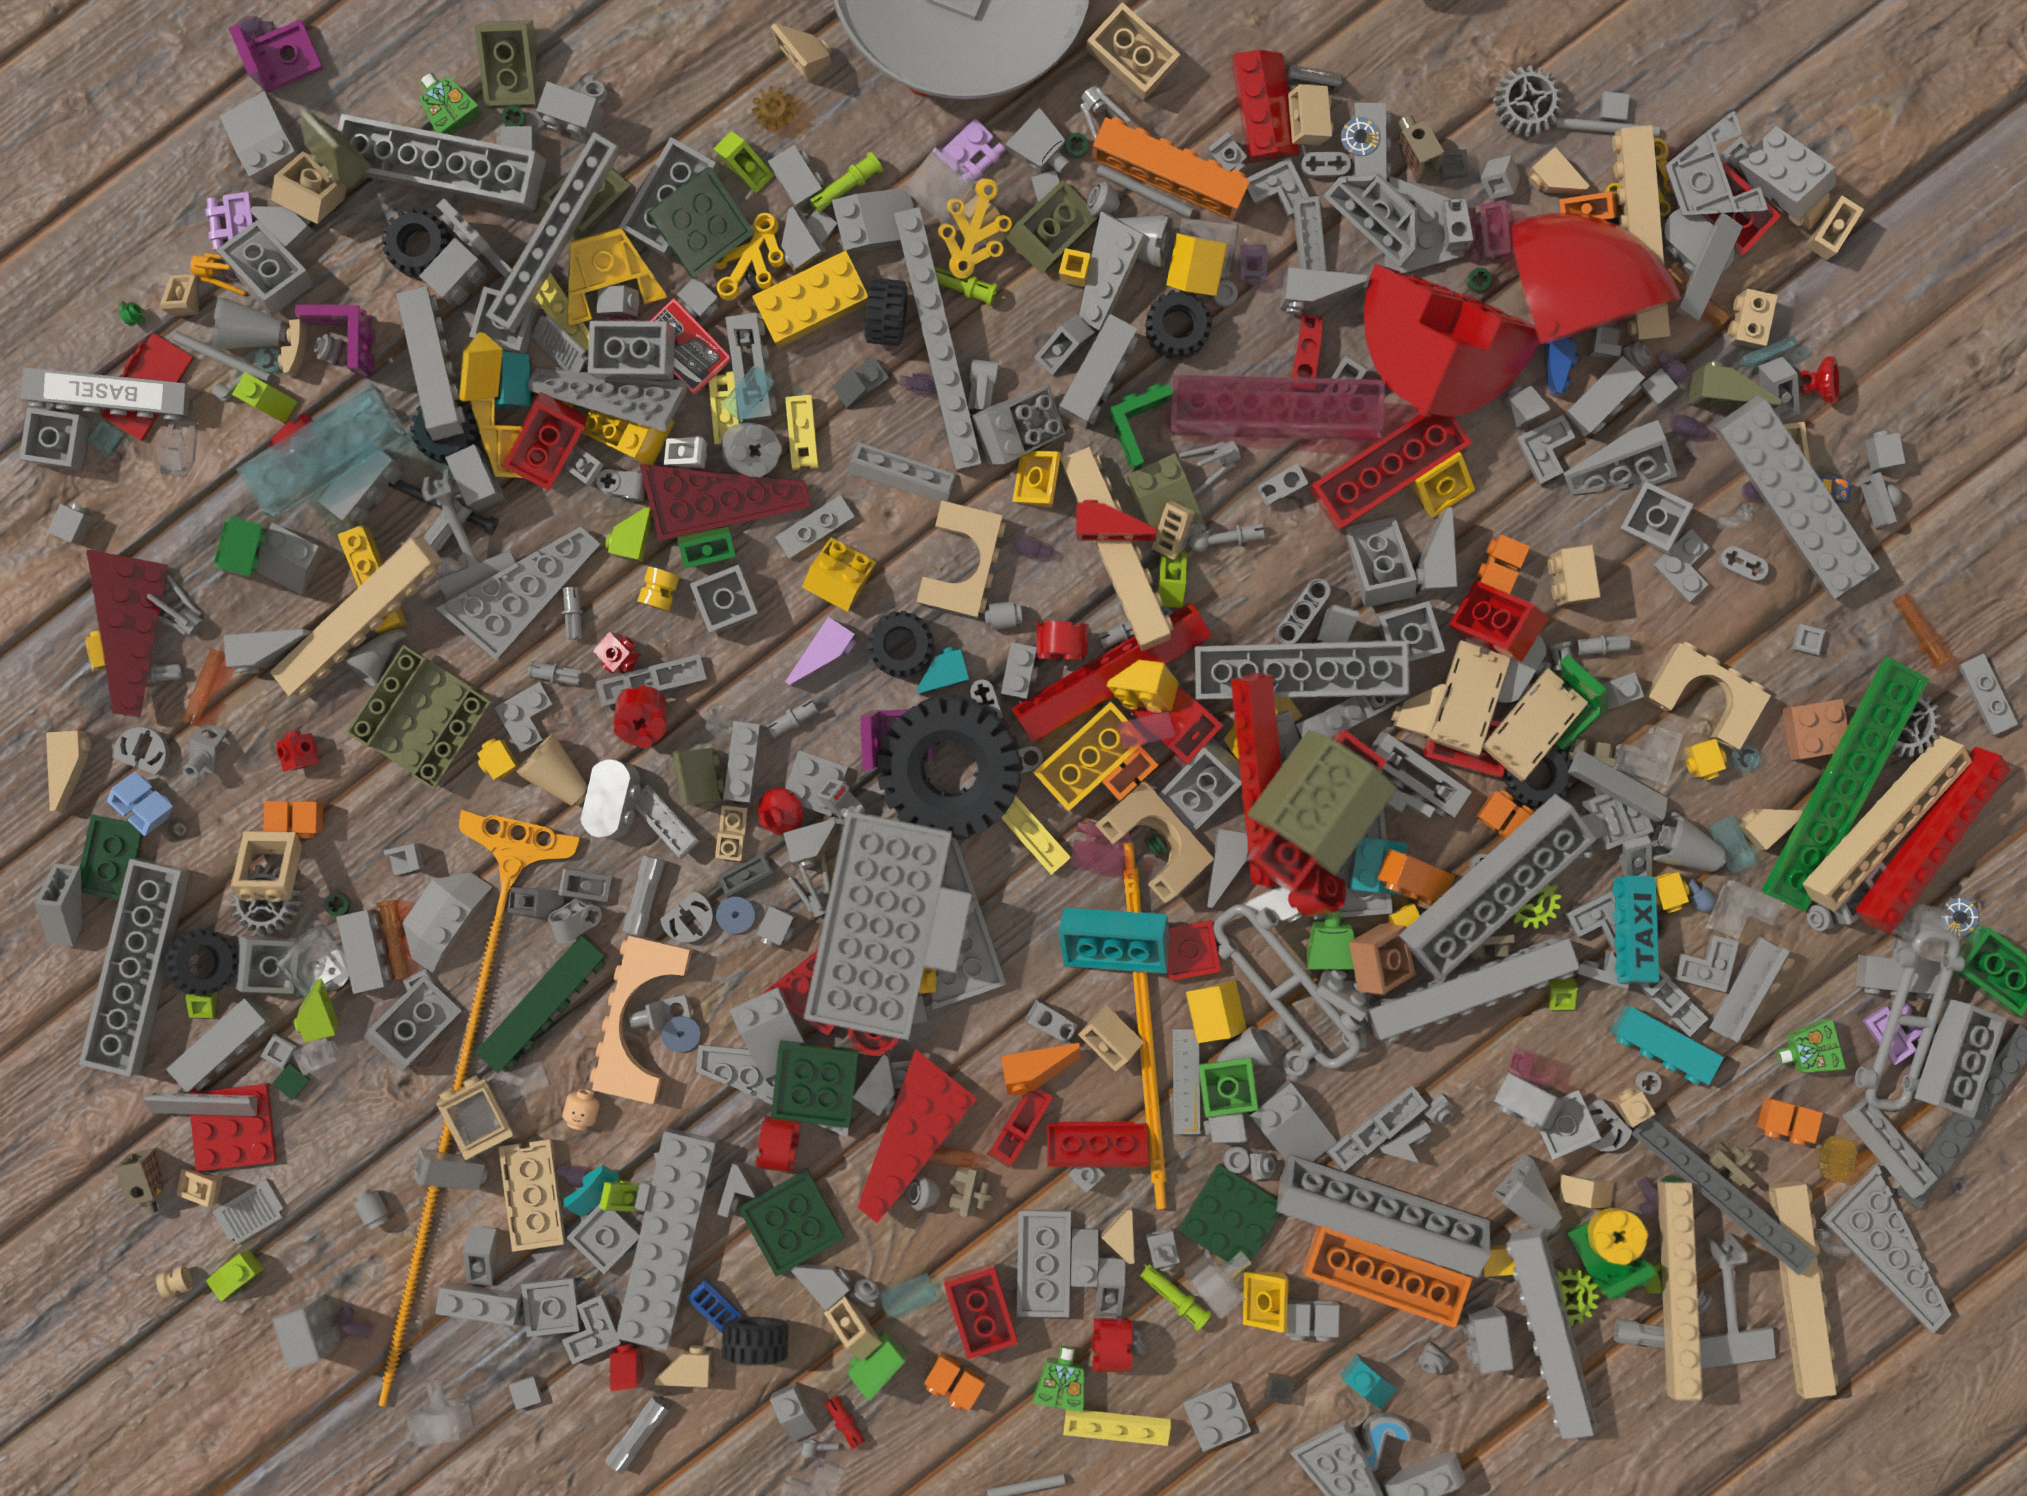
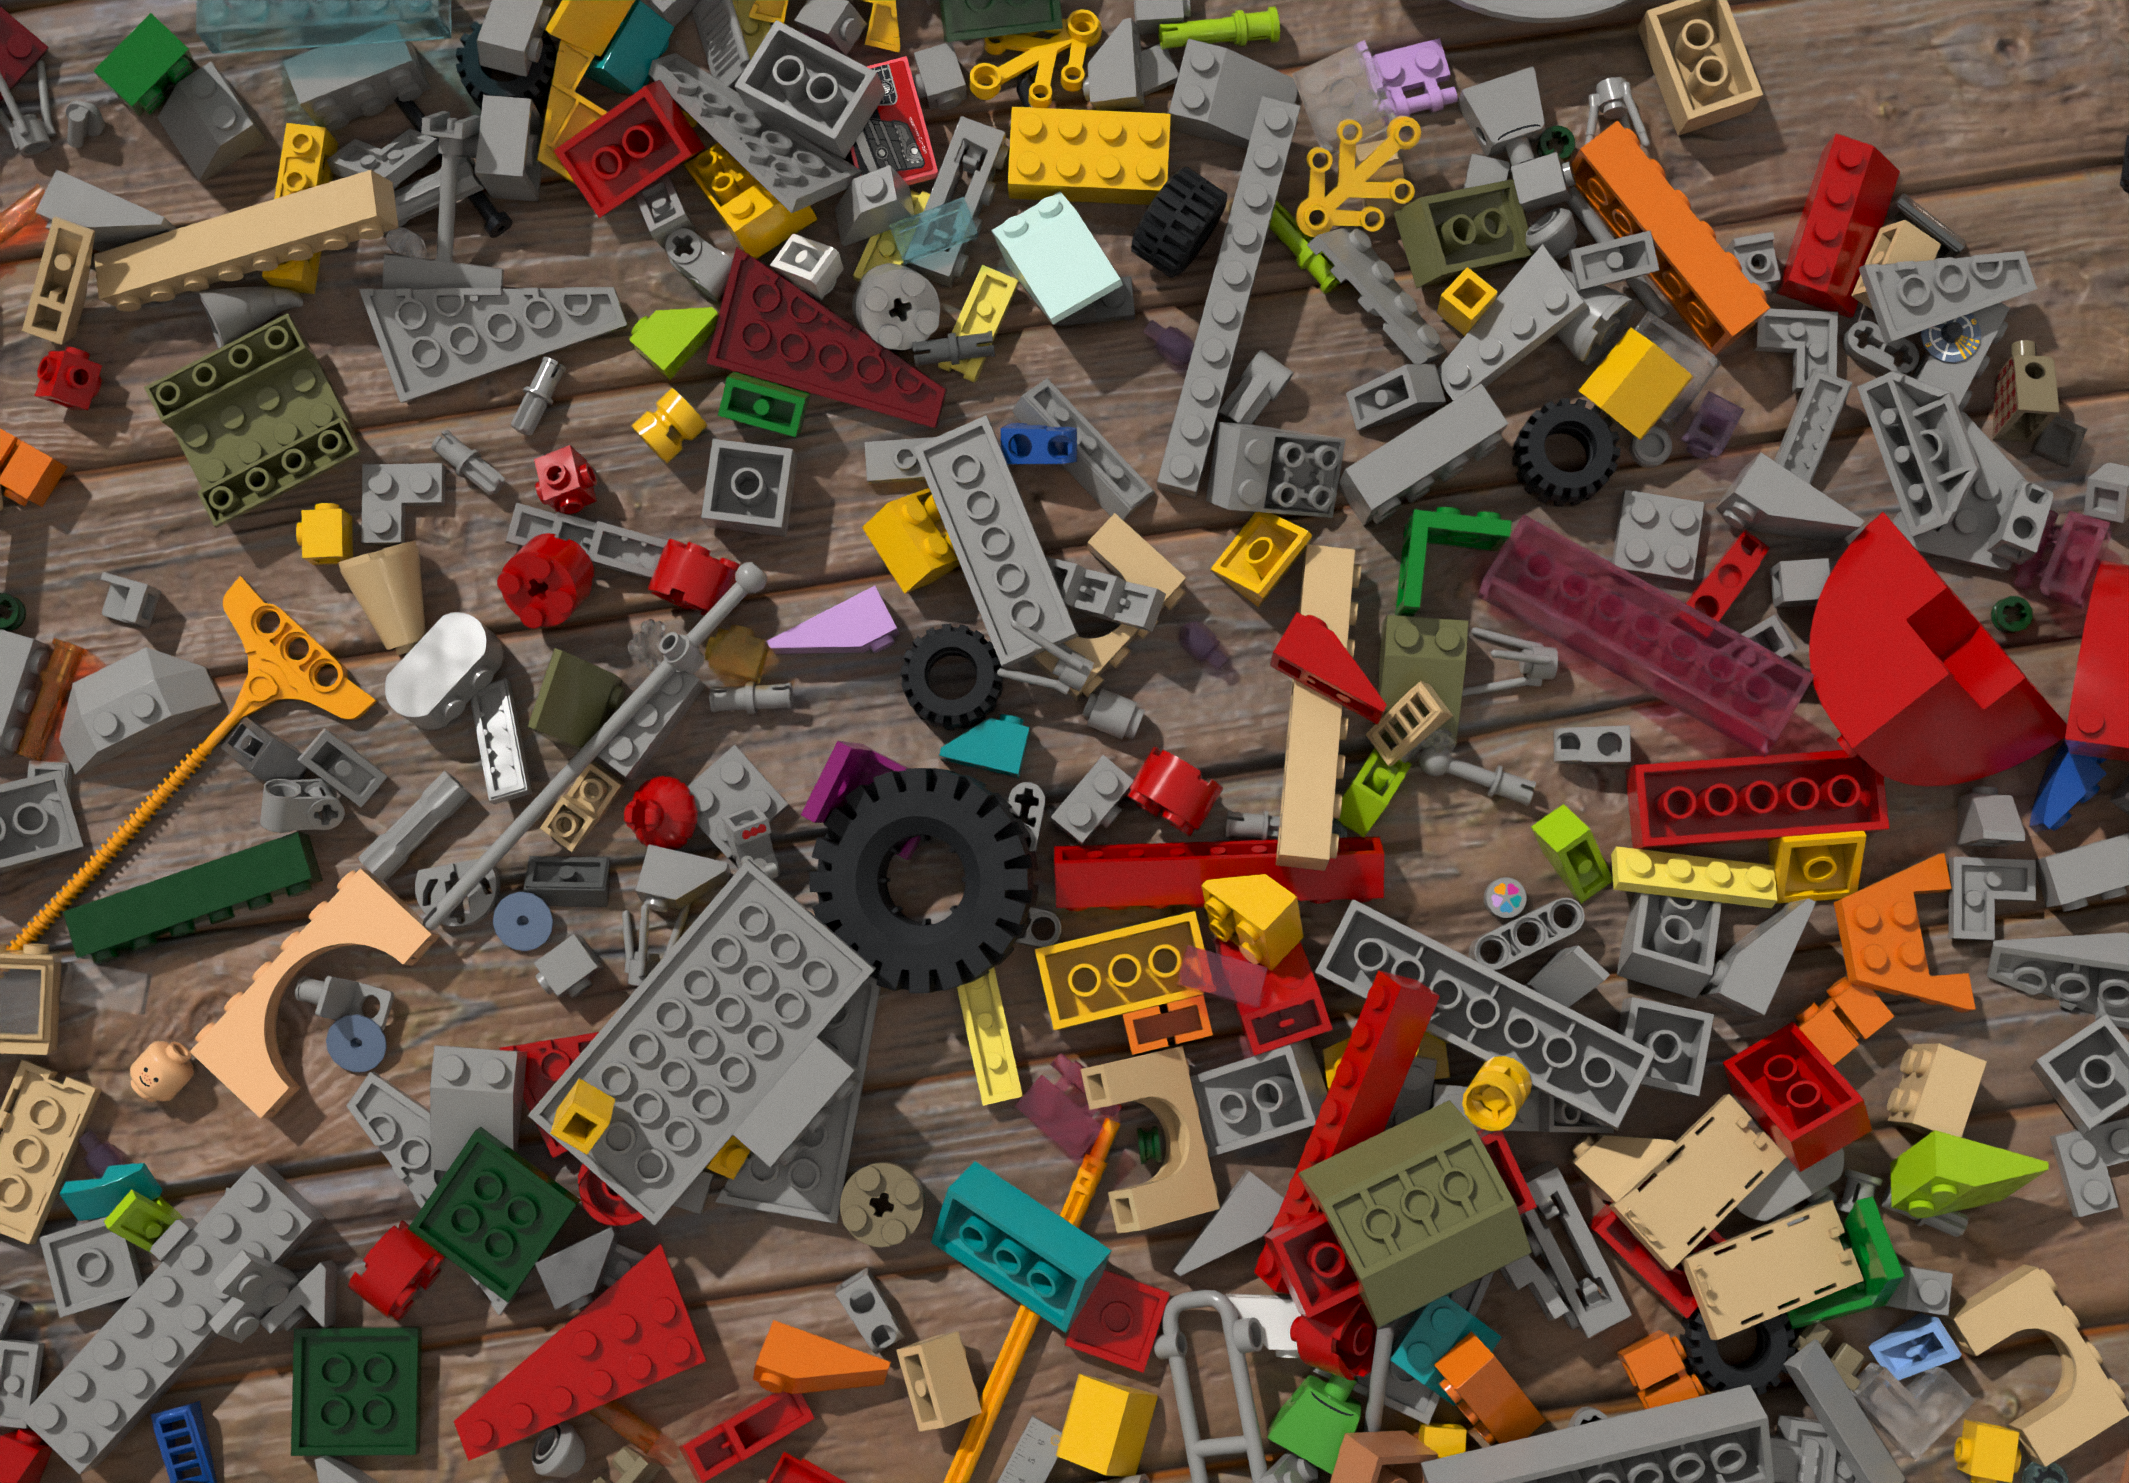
camera: 30 degrees right, 5 degrees down
(214, 596) = (82, 121): none -> light grey plate
(262, 698) = (61, 282): none -> tan slope
(410, 525) = (393, 162): none -> light grey plate
(704, 397) = (872, 205): none -> light grey slope
(706, 1197) = (255, 1290): none -> light grey plate
(724, 668) = (691, 576): none -> red brick
(741, 716) = (680, 654): none -> light grey bar
(771, 698) = (737, 653): none -> clear yellow brick
(797, 455) = (953, 348): none -> dark grey pin
(827, 371) = (1056, 257): none -> light aqua slope
(836, 1001) = (583, 1116): none -> yellow brick
(876, 484) = (1038, 444): none -> blue leg
(883, 554) = (994, 540): none -> light grey plate
(948, 554) = (1107, 595): none -> light grey slope
(965, 602) = (1071, 667): none -> light grey plant
(1013, 951) = (861, 1215): none -> dark tan brick
(1023, 289) = (1379, 292): none -> light grey wing
(1081, 172) = (1543, 182): none -> light grey brick
(1146, 200) = (1613, 261): none -> light grey slope
(1255, 343) = (1658, 536): none -> light grey plate
(1279, 598) = (1505, 898): none -> light grey tile
(1303, 552) = (1572, 852): none -> lime slope
(1332, 711) = (1497, 1093): none -> yellow wheel
(1337, 119) = (1932, 292): none -> light grey wing
(1349, 327) = (1798, 582): none -> light grey brick
(1351, 902) = (1378, 1379): none -> light grey bar
(1378, 529) = (1693, 877): none -> light yellow plate
(1502, 505) = (1885, 939): none -> orange wing
(1609, 615) = (1957, 1174): none -> lime slope
(1636, 723) = (1915, 1347): none -> light blue slope

